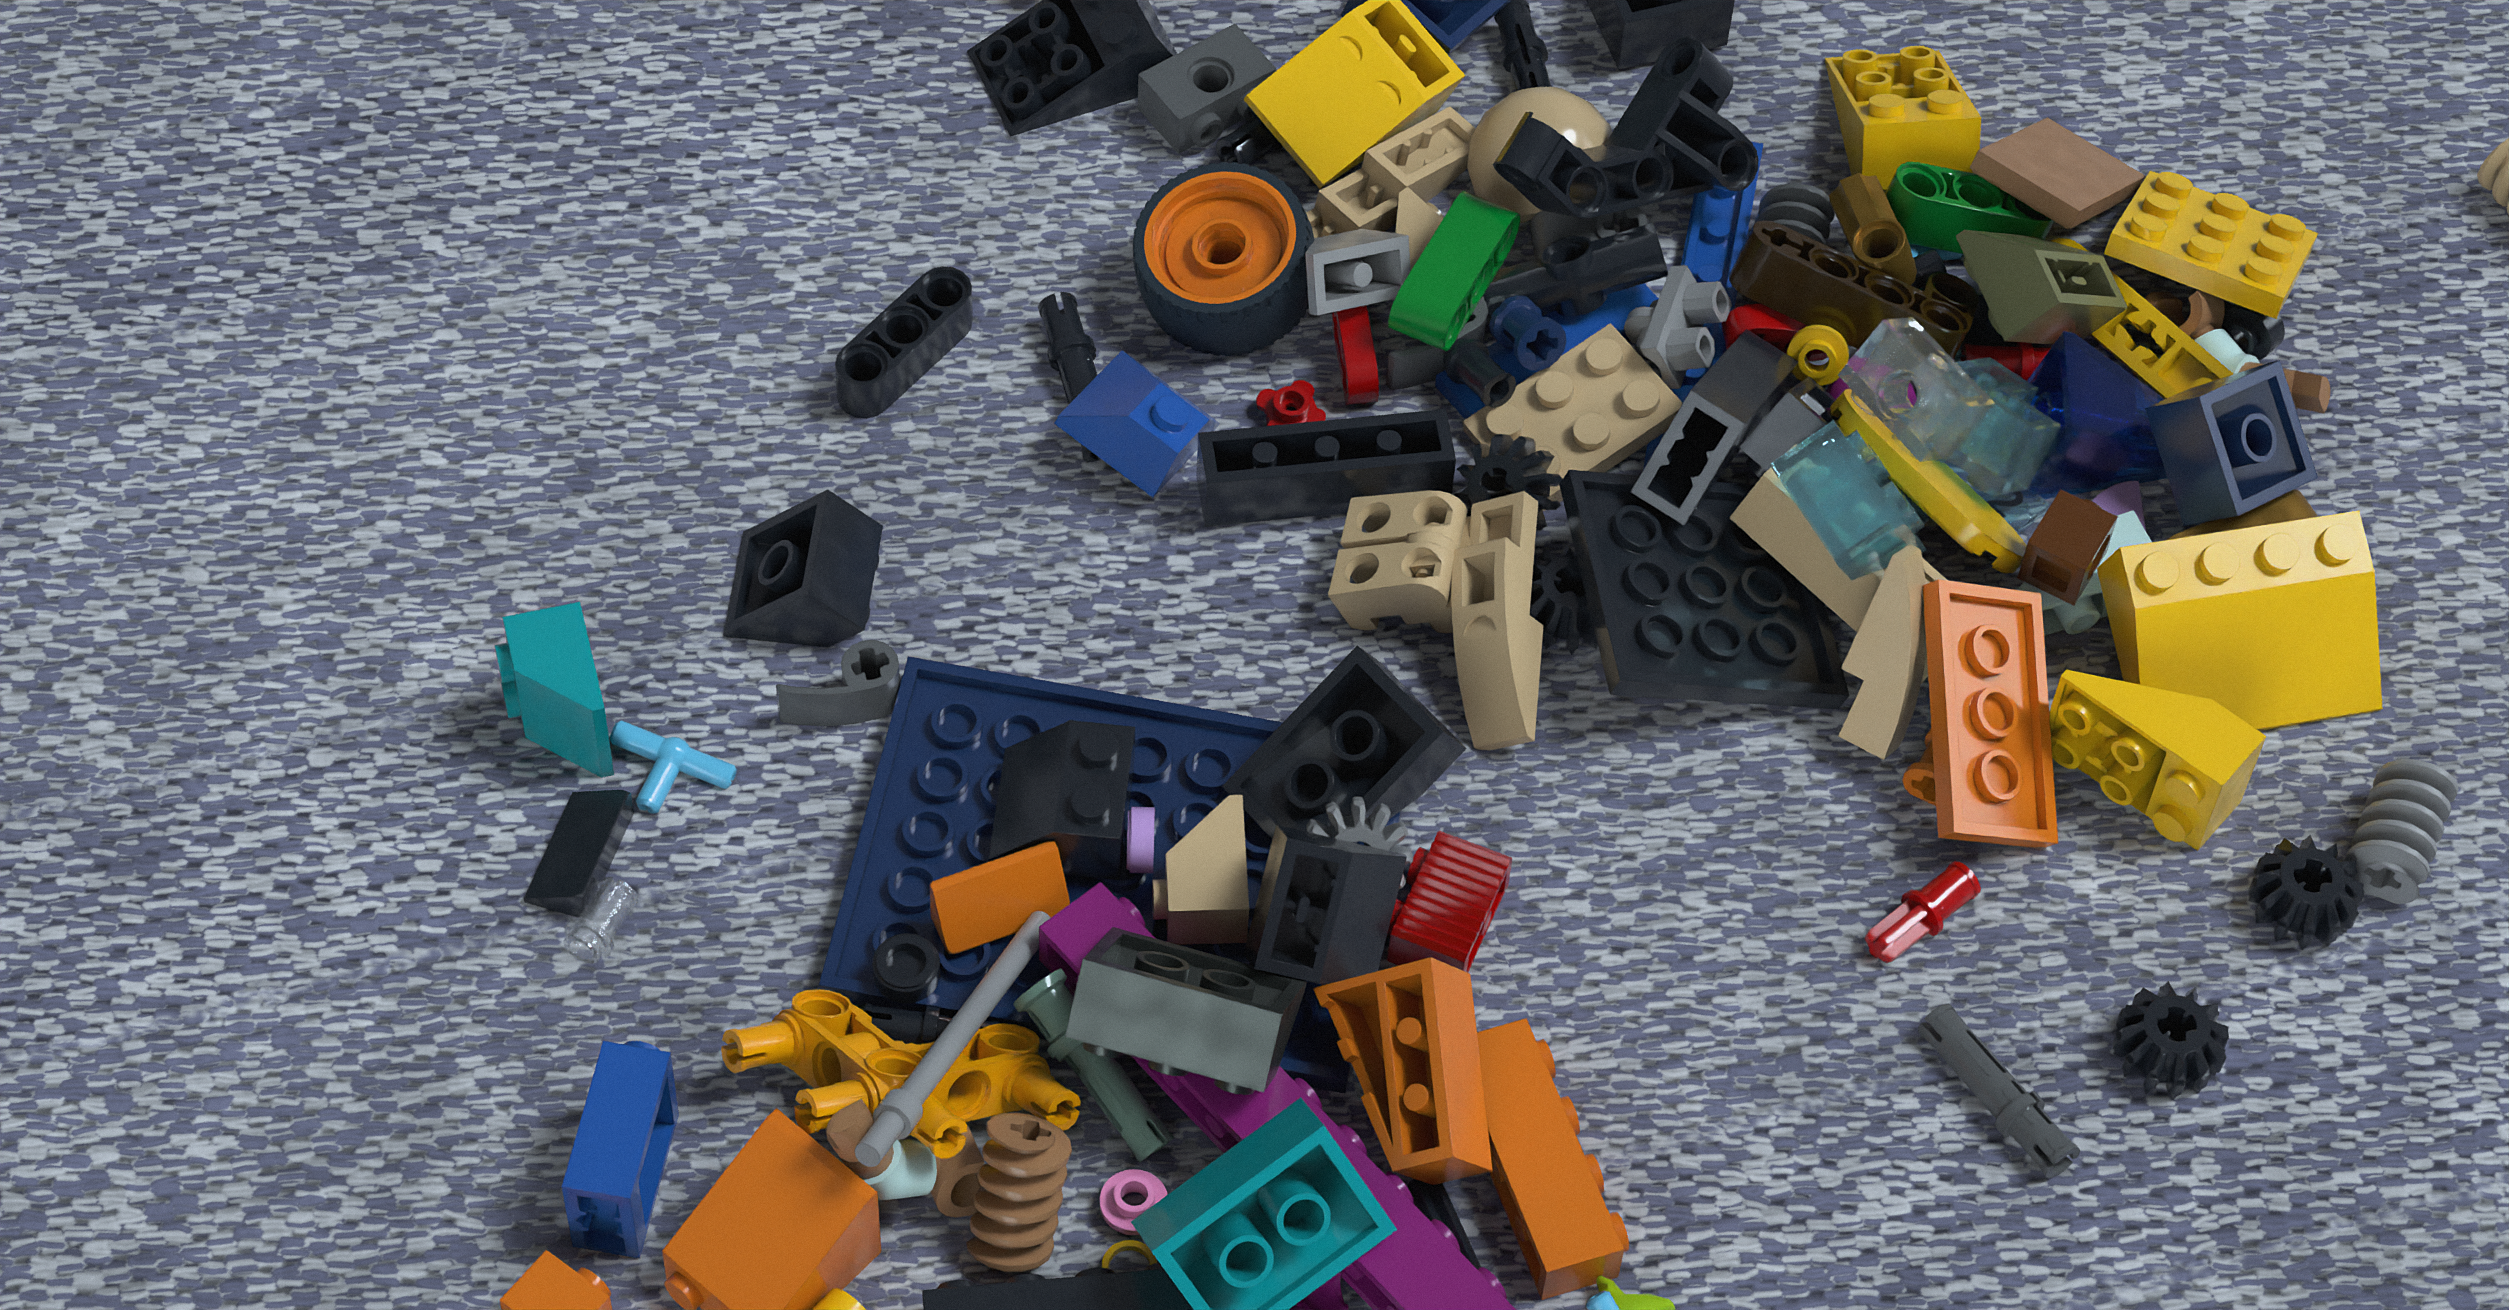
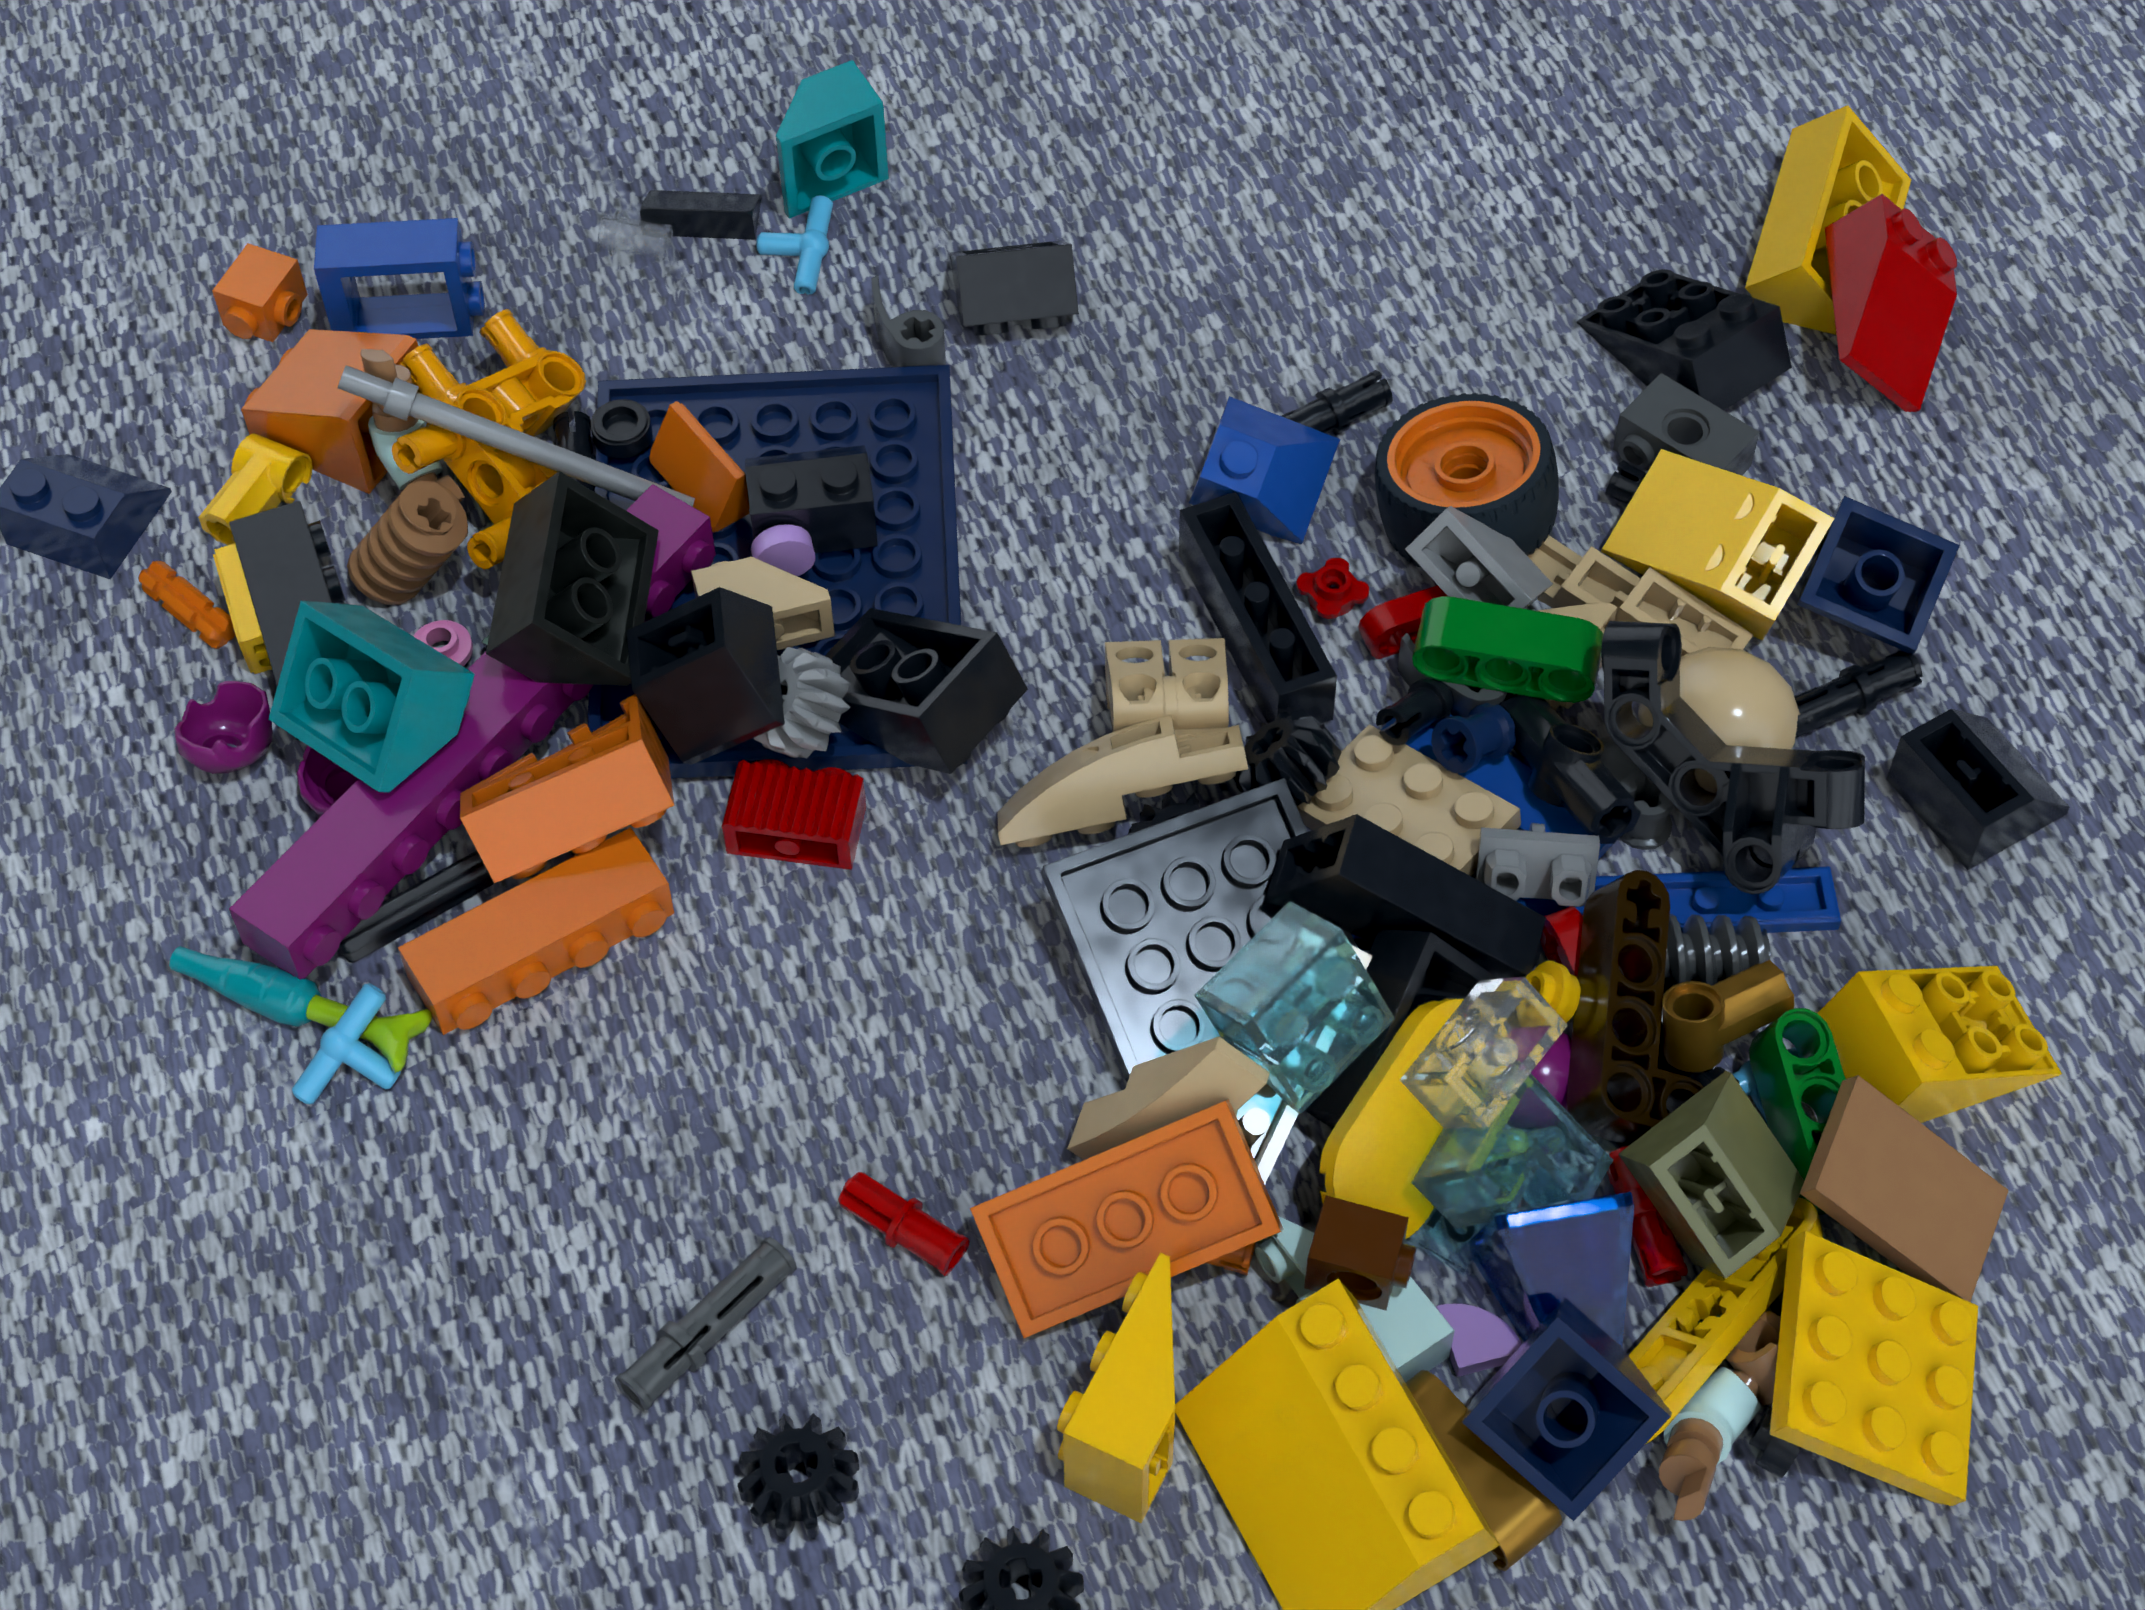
camera: 80 degrees right, 0 degrees up
(904, 342) = (1292, 288): black beam -> none

